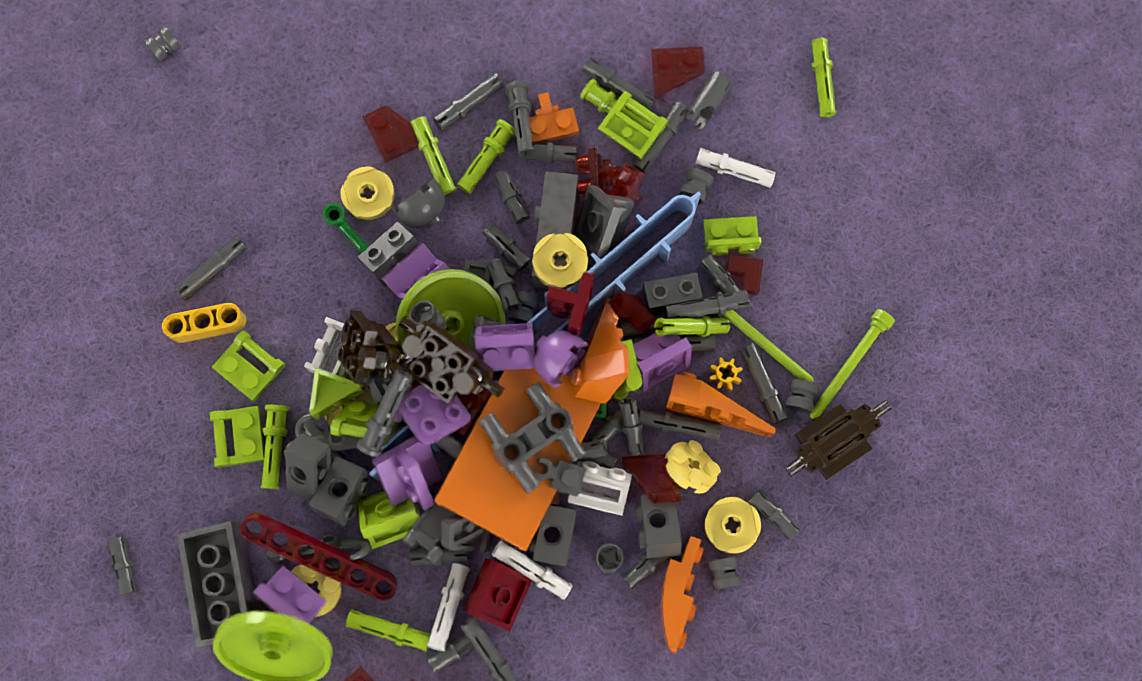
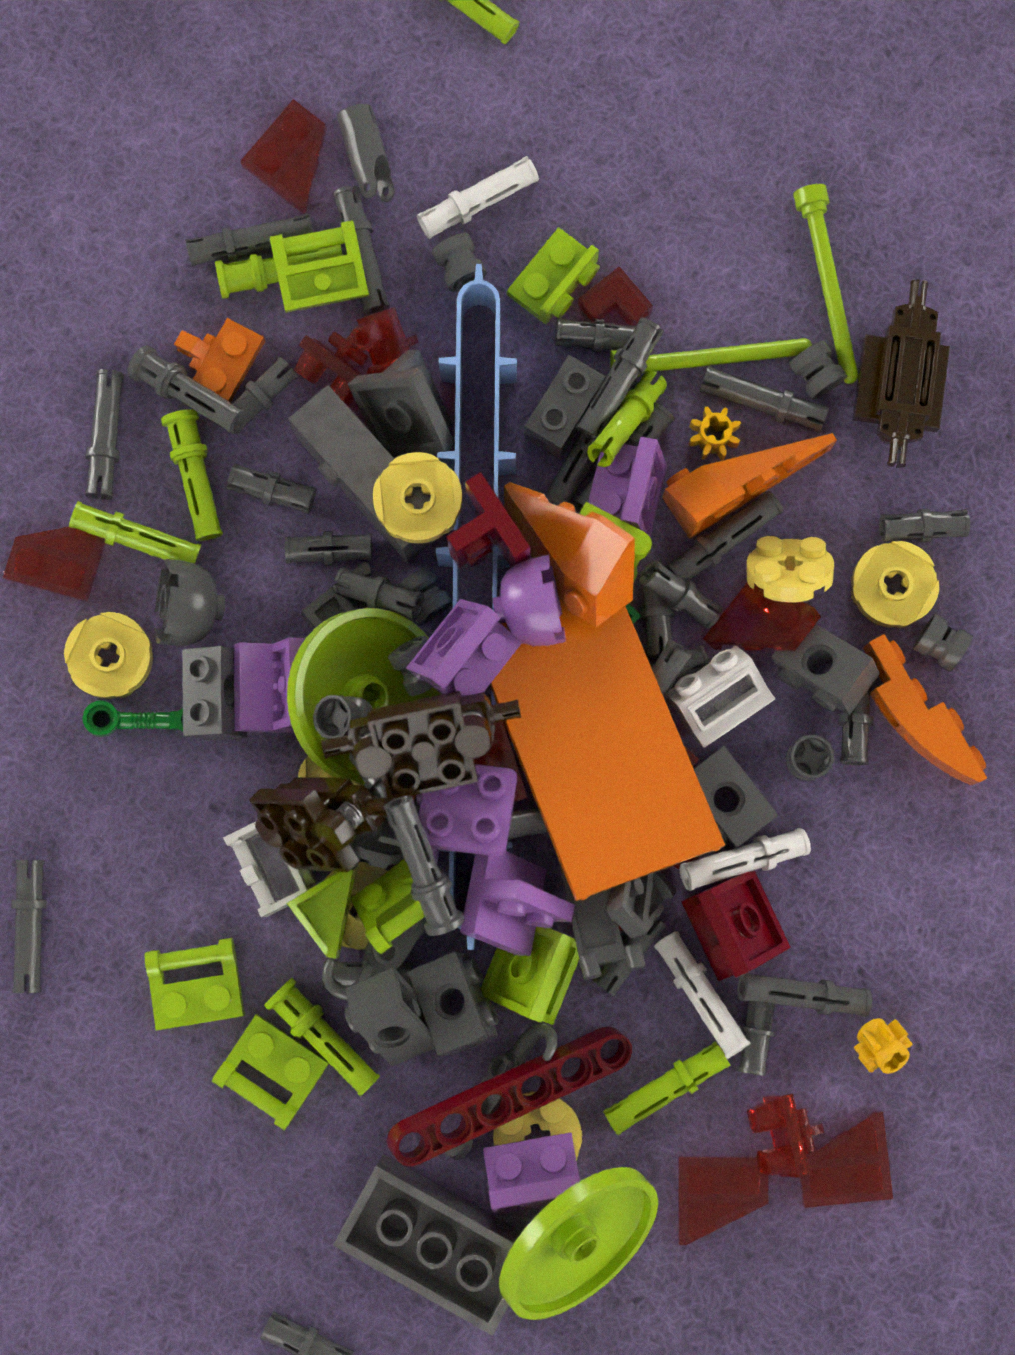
camera: 45 degrees left, 5 degrees up
(192, 319) = (74, 1004): yellow beam -> none
(532, 437) = (602, 718): dark grey piece -> none
(563, 477) = (676, 724): dark grey plate -> none
(632, 308) = (546, 467): clear red piece -> none

